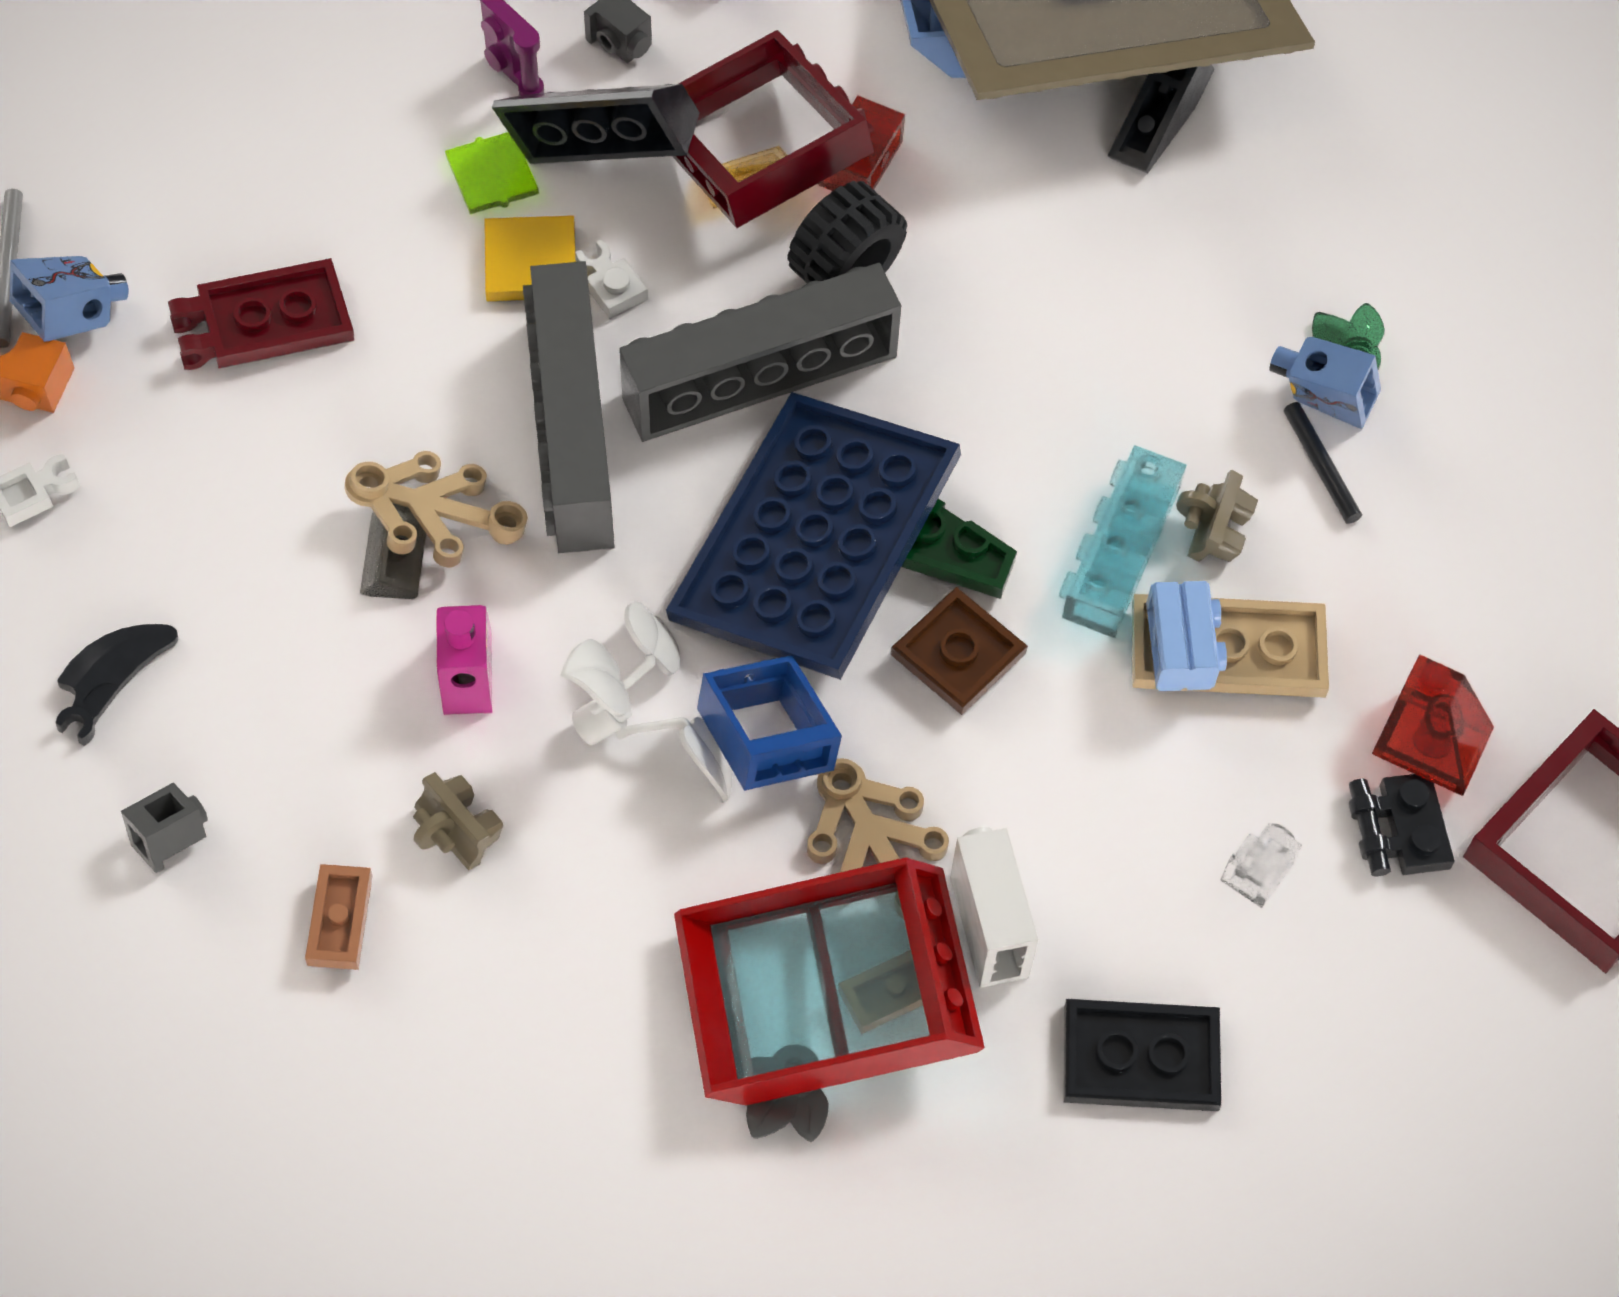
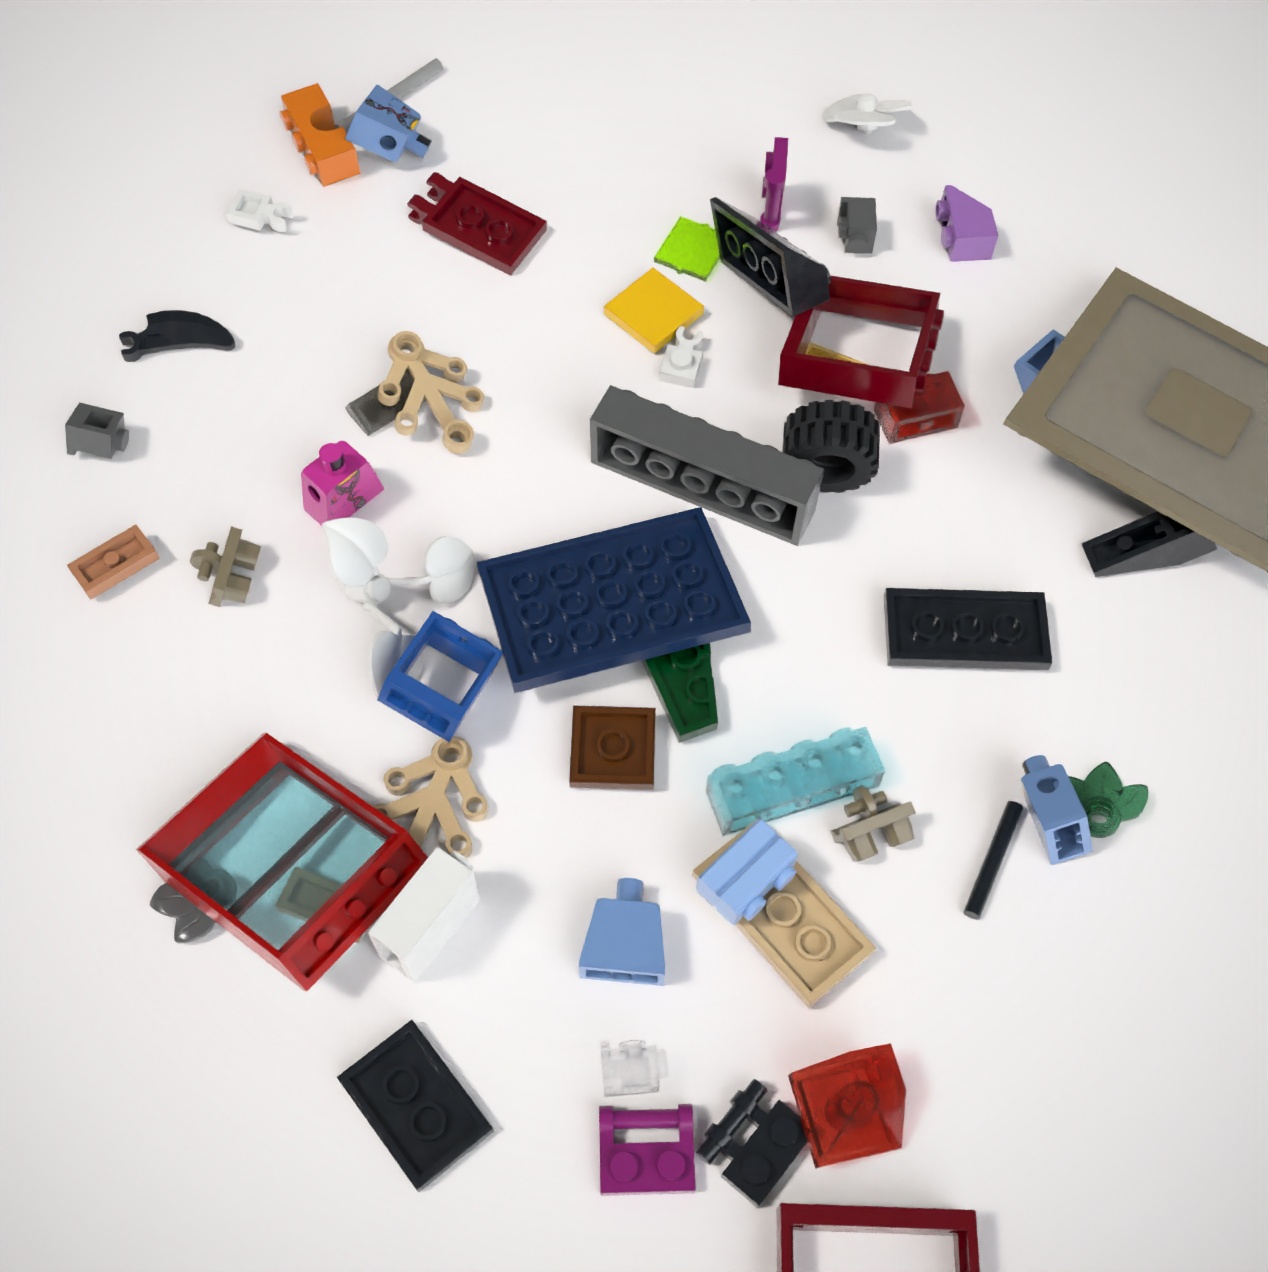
camera: 50 degrees right, 0 degrees up
(568, 408) = (557, 402): dark grey brick -> none
(1106, 302) = (967, 629): none -> black plate
(1147, 778) = (624, 939): none -> medium blue torso
(1350, 918) = (646, 1166): none -> magenta plate

